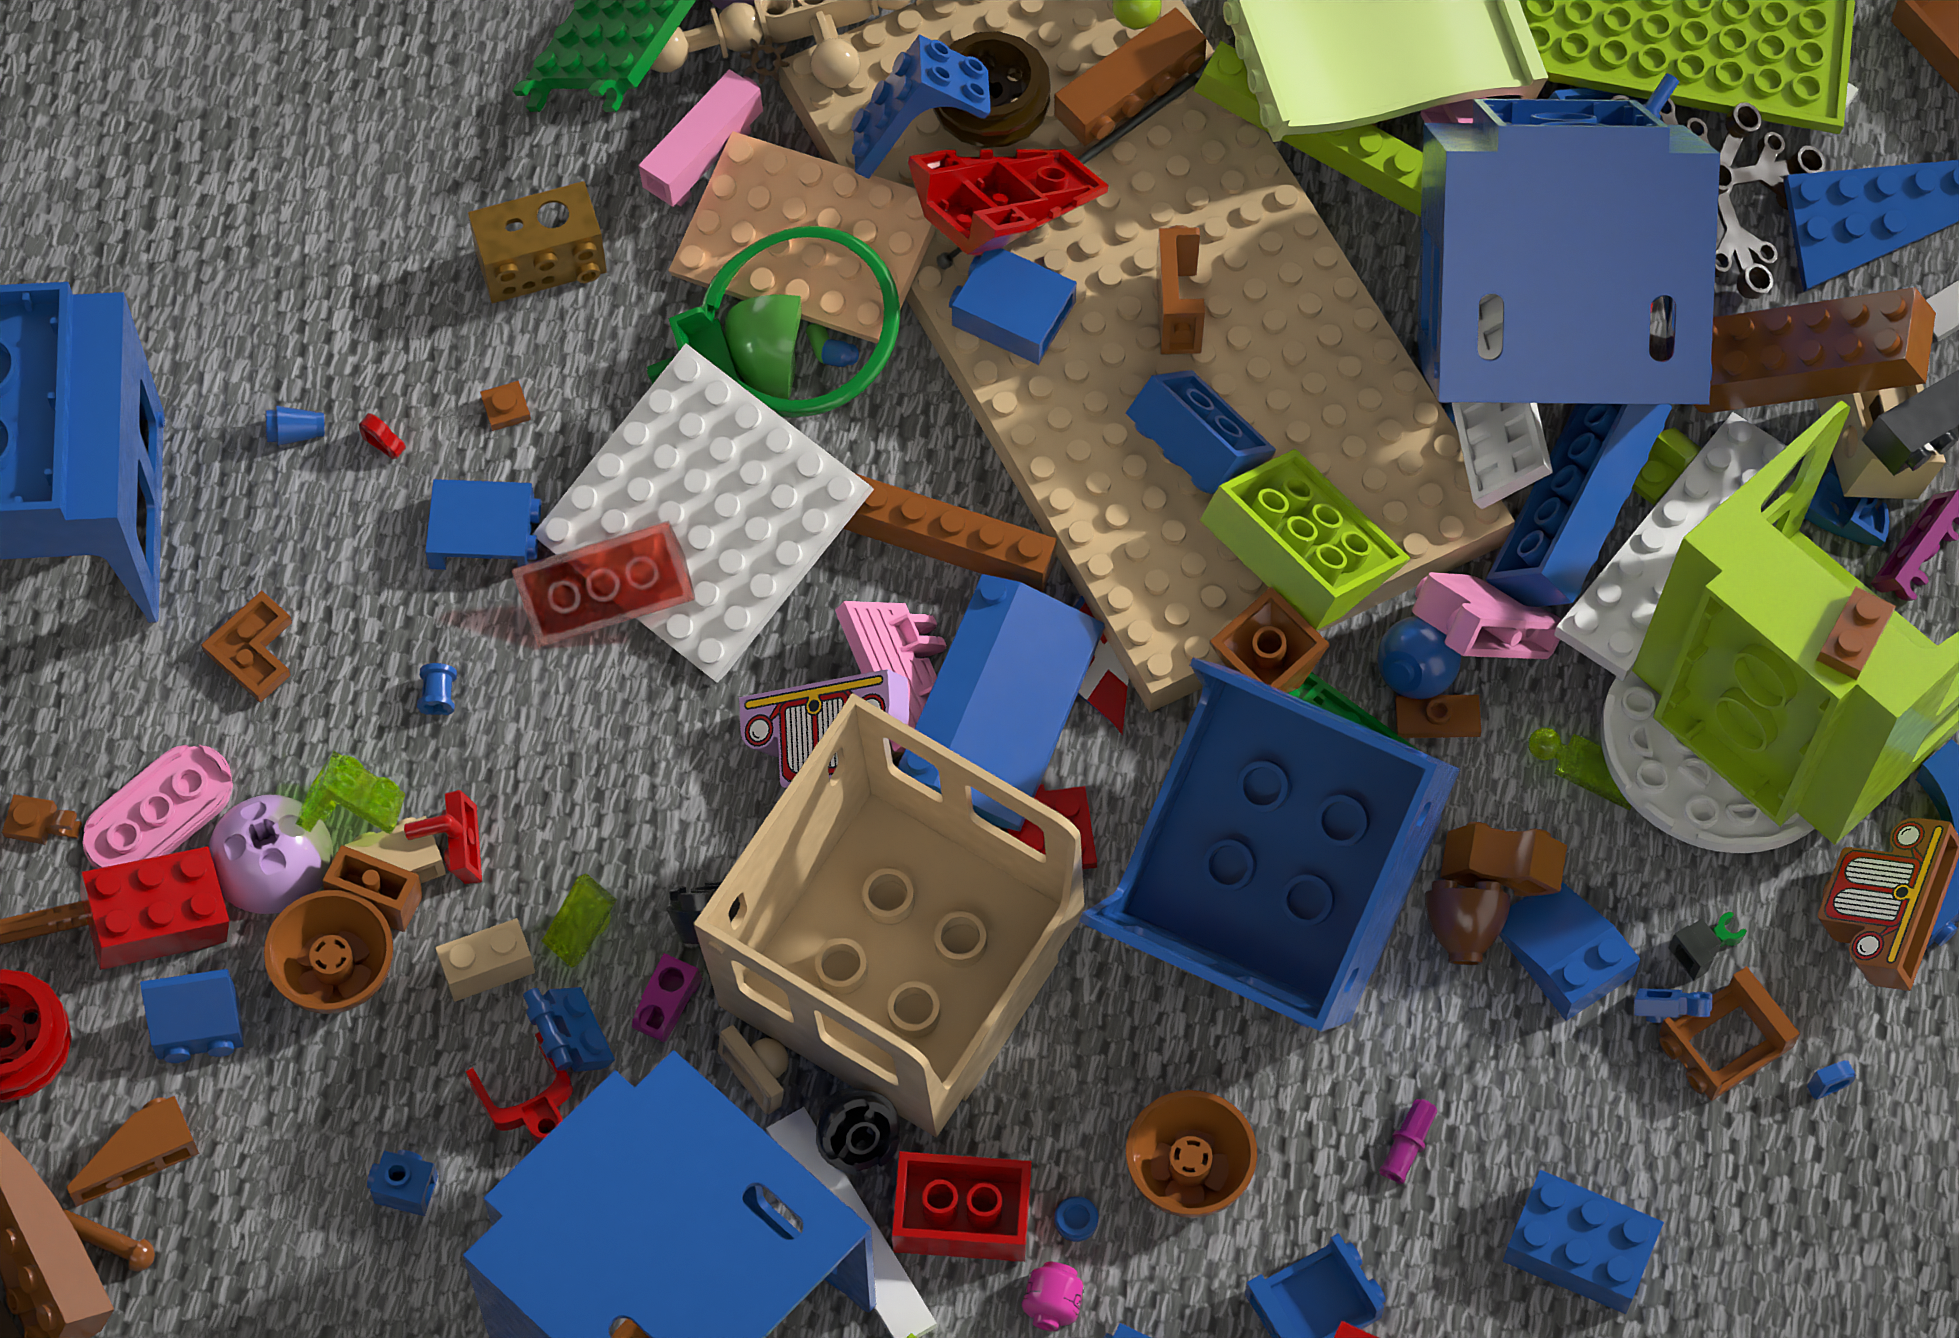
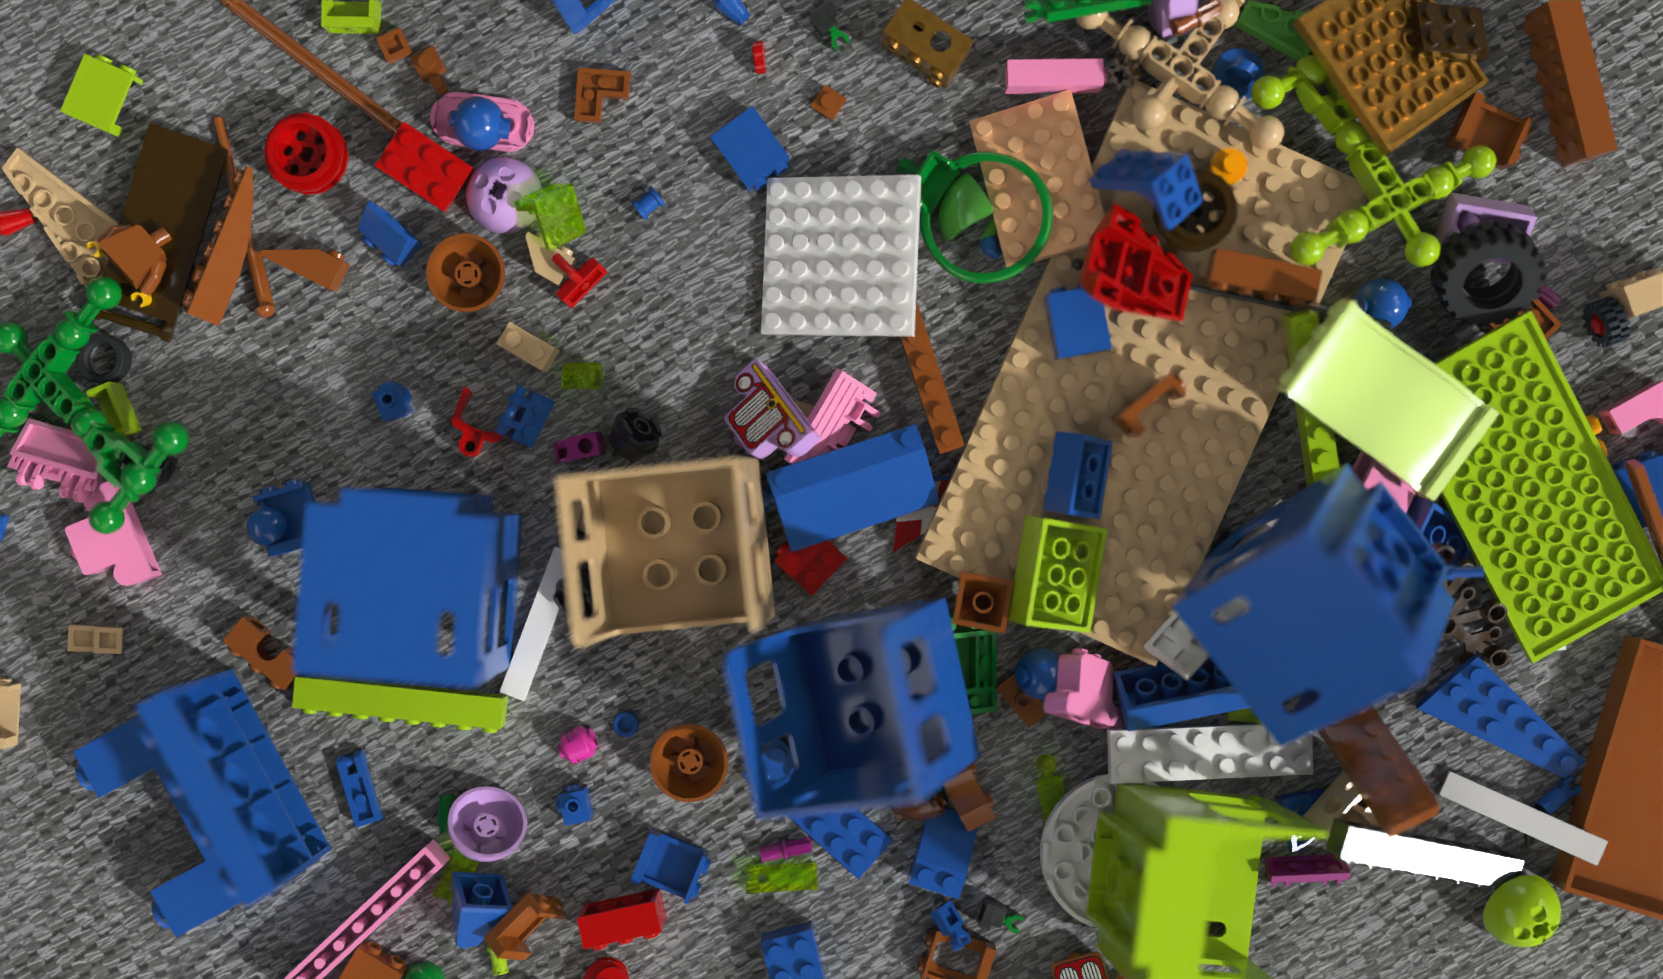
camera: 55 degrees right, 25 degrees up
(165, 794) = (479, 123): none -> blue brick
(386, 886) = (518, 263): dark orange brick -> none
(408, 337) = (826, 23): none -> pearl dark grey piece
(604, 583) = (763, 241): clear red slope -> none
(961, 1206) = (583, 675): red brick -> none
(967, 19) = (1229, 164): none -> light orange piece
(1384, 1061) = (844, 834): none -> blue plate
(1444, 1174) = (782, 877): none -> clear neon green plate
(1856, 633) = (1180, 947): dark orange plate -> none

